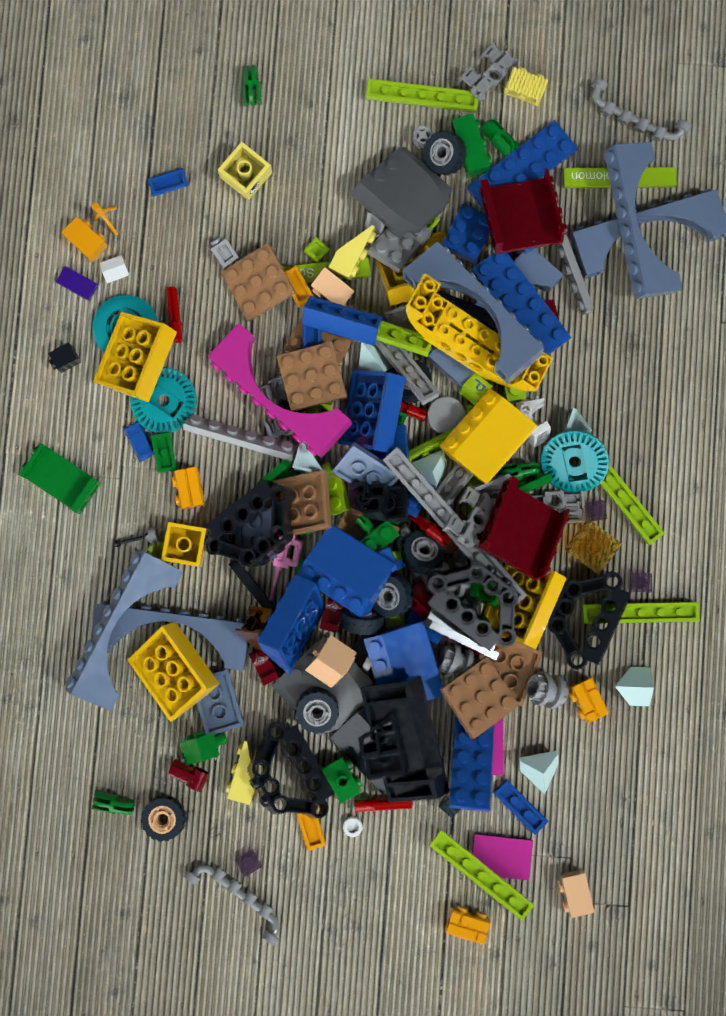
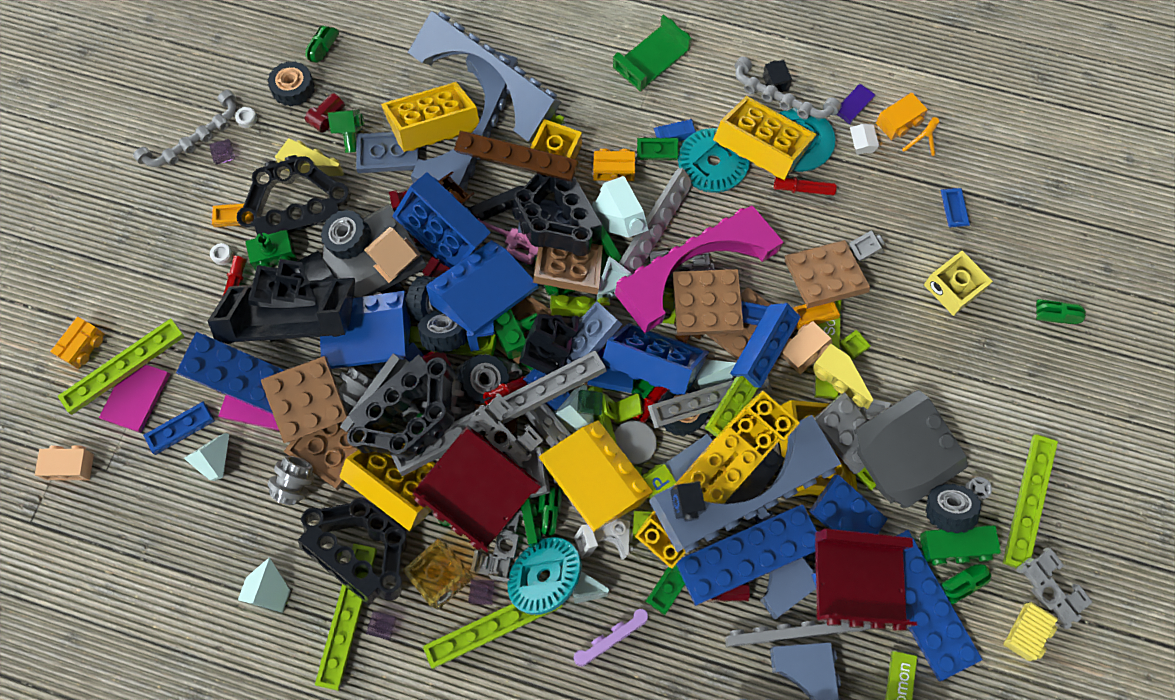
camera: 105 degrees right, 15 degrees down
(84, 360) = (770, 92): none -> light grey bar
(151, 535) = (575, 122): hinge -> none
(206, 576) = (516, 156): none -> reddish brown plate
(207, 852) = (246, 117): none -> white tile
(240, 470) = (619, 209): none -> light aqua slope
(419, 430) = (622, 409): none -> lime bracket
(426, 455) = (590, 402): none -> clear green plate
(508, 349) = (688, 501): none -> black brick
(563, 366) = (666, 590): none -> green plate
(588, 700) = (266, 528): light orange brick -> none
(602, 394) = (603, 644): none -> lavender plate

